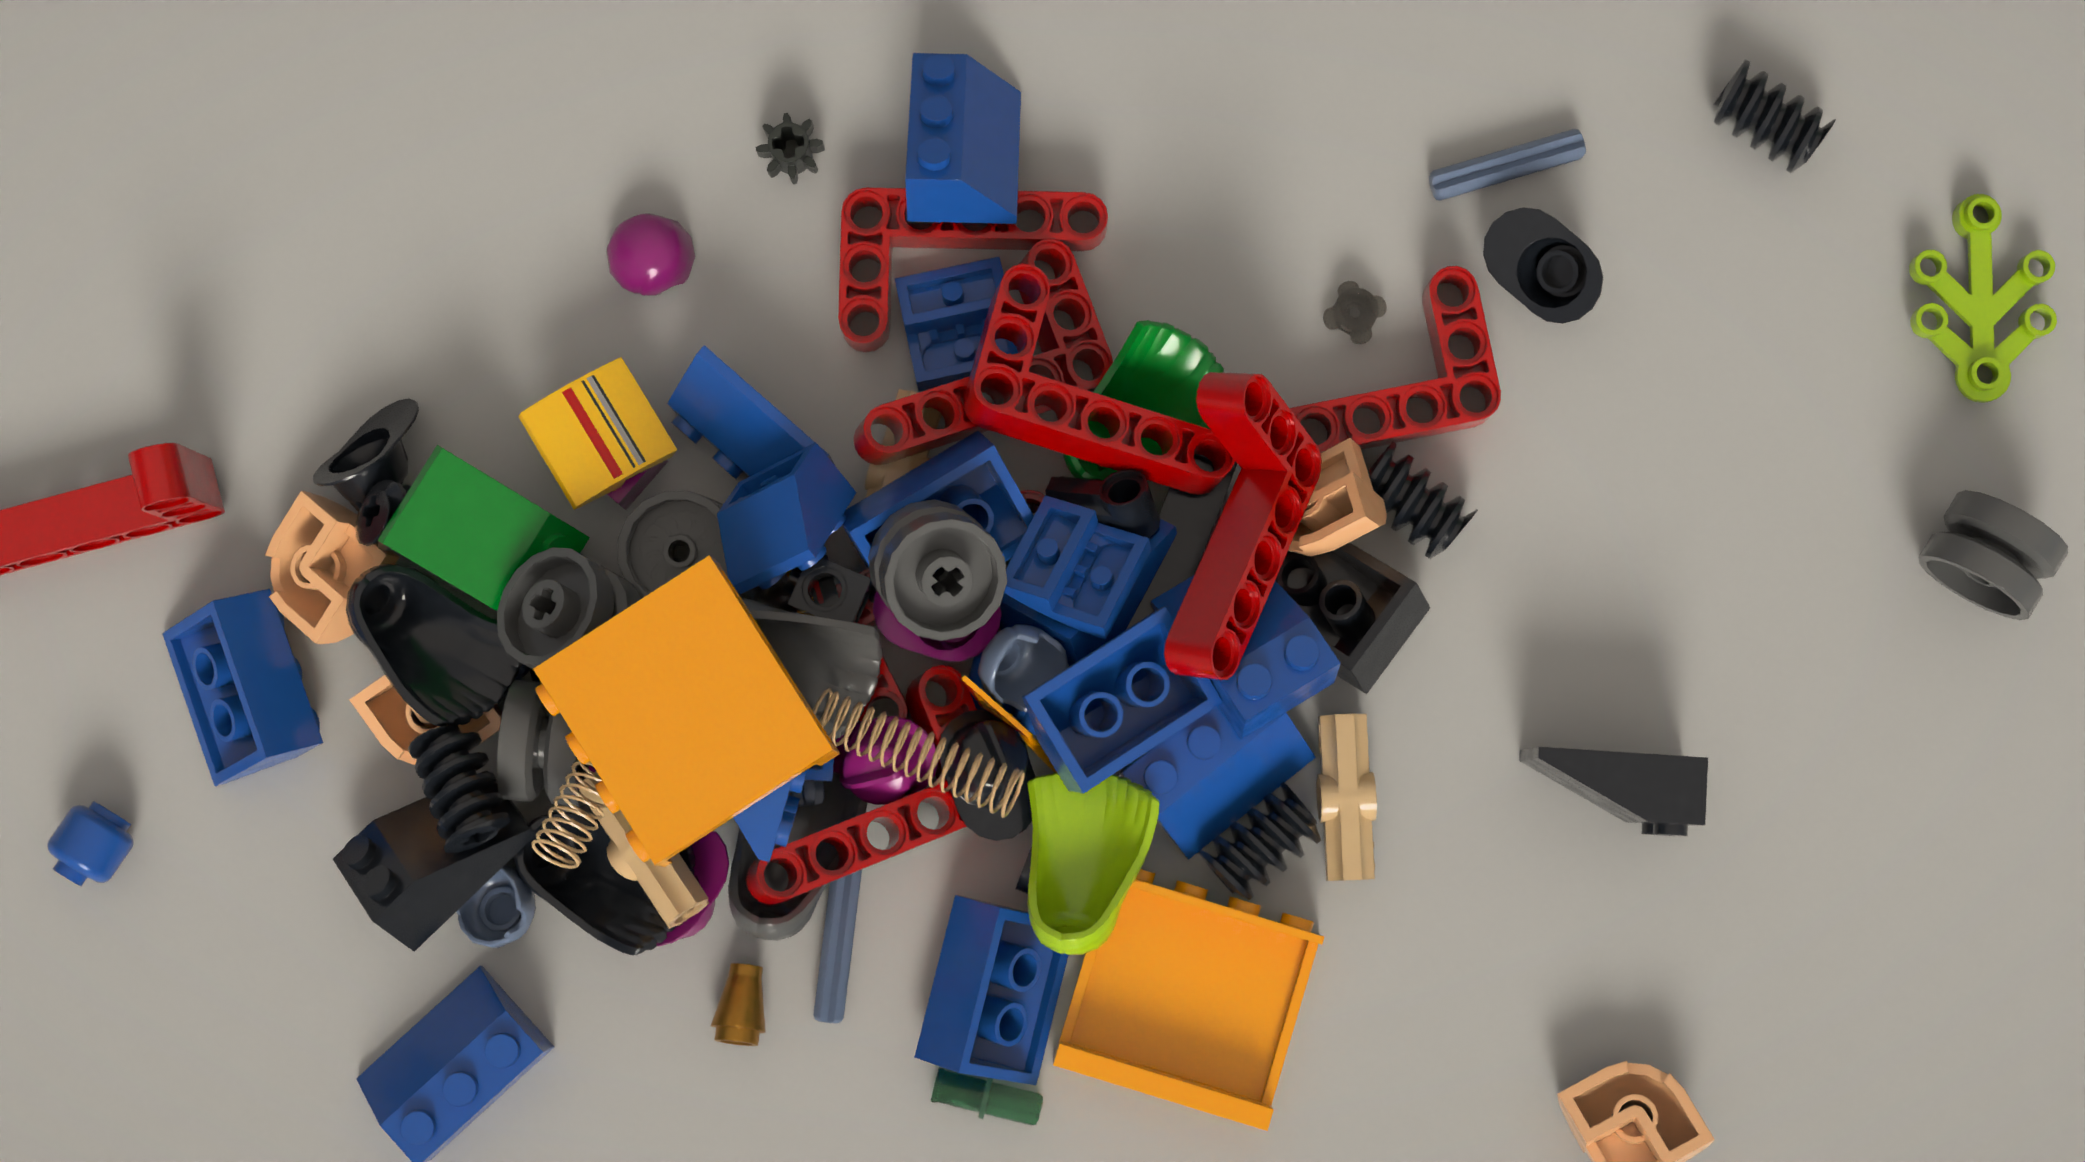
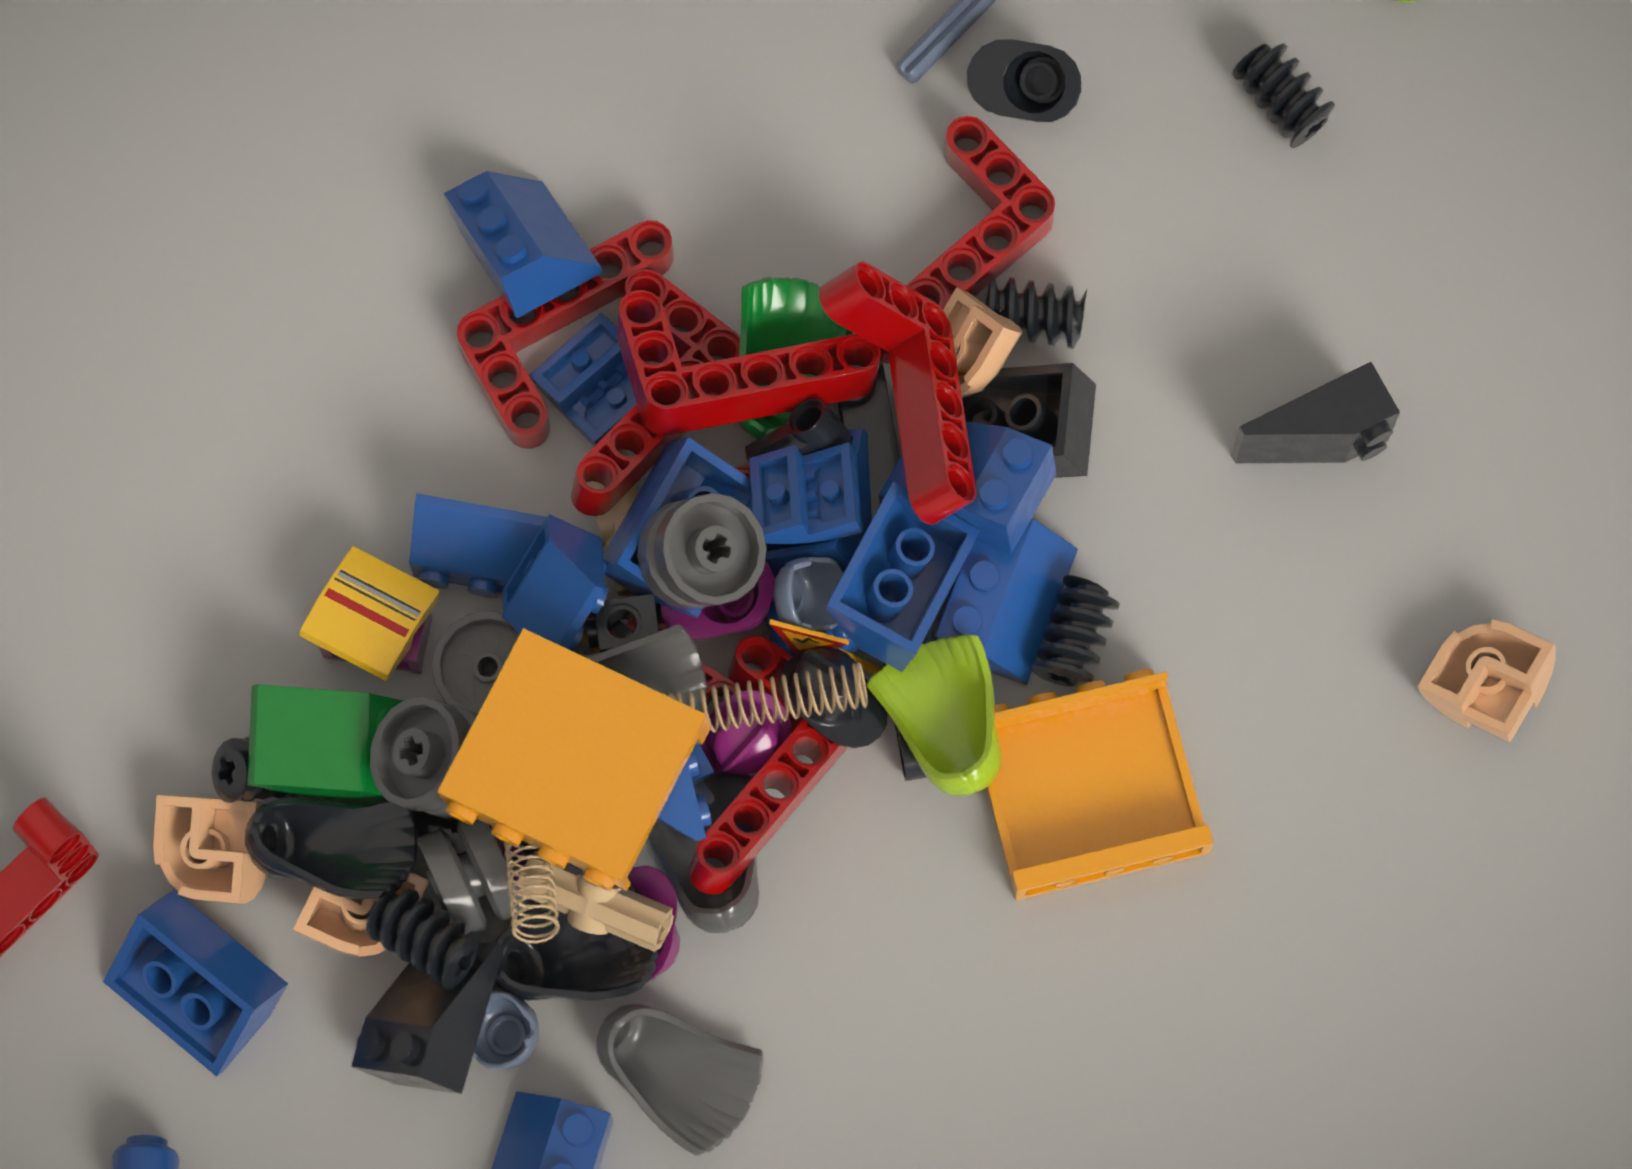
camera: 30 degrees left, 10 degrees down
(371, 454) = (193, 738): black piece -> none
(634, 1046) = (680, 1074): none -> dark grey hair
(650, 254) = (323, 465): magenta hair -> none
(740, 1009) = (745, 999): pearl gold cone -> none
(777, 143) = (394, 311): pearl dark grey gear -> none
(837, 949) = (792, 908): sand blue axle -> none
(987, 1097) = (981, 954): clear green axle -> none
(991, 995) = (936, 867): blue slope -> none
(1346, 797) = (1119, 563): tan piece -> none
(1351, 297) = (906, 187): clear smoke plate -> none
(1792, 423) = (1283, 93): none -> black piece
(1993, 554) = (1493, 100): dark grey wheel -> none

